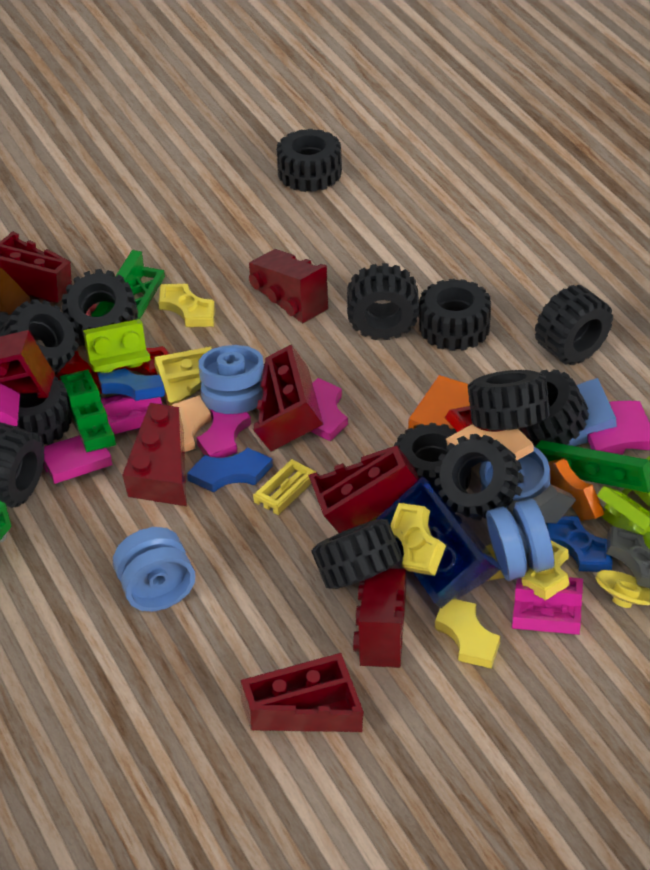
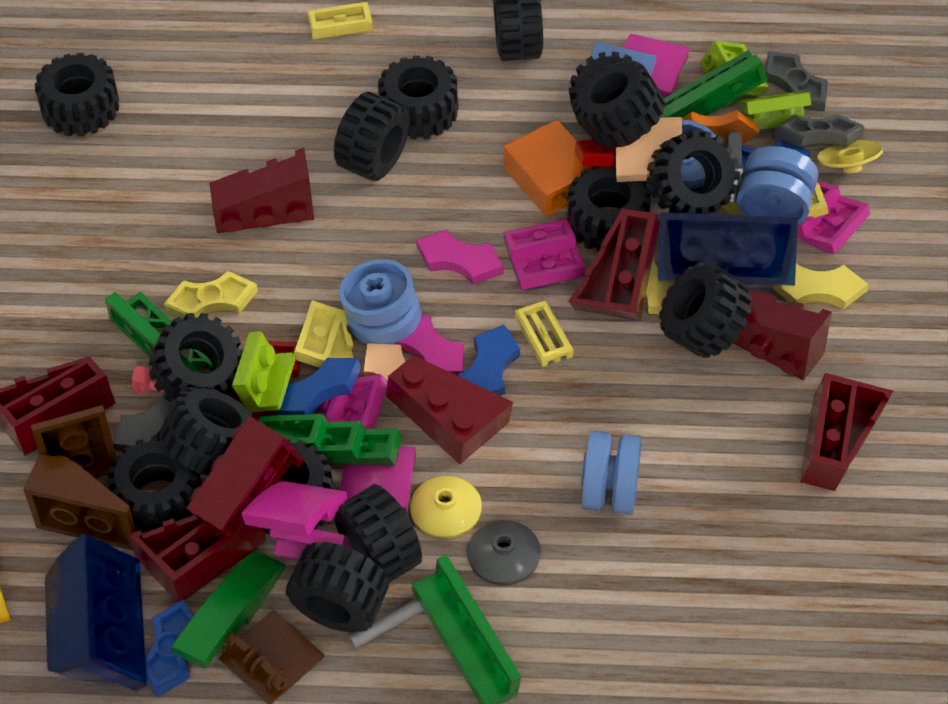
camera: 60 degrees left, 10 degrees up
(60, 555) = (507, 564): none -> dark grey dish
(82, 505) = (449, 518): none -> light yellow dish
(288, 400) = (449, 269): dark red wedge -> none
(357, 442) = (544, 254): none -> dark pink slope
(421, 550) = (738, 259): light yellow tile -> none
(502, 252) = (336, 20): none -> light yellow tile

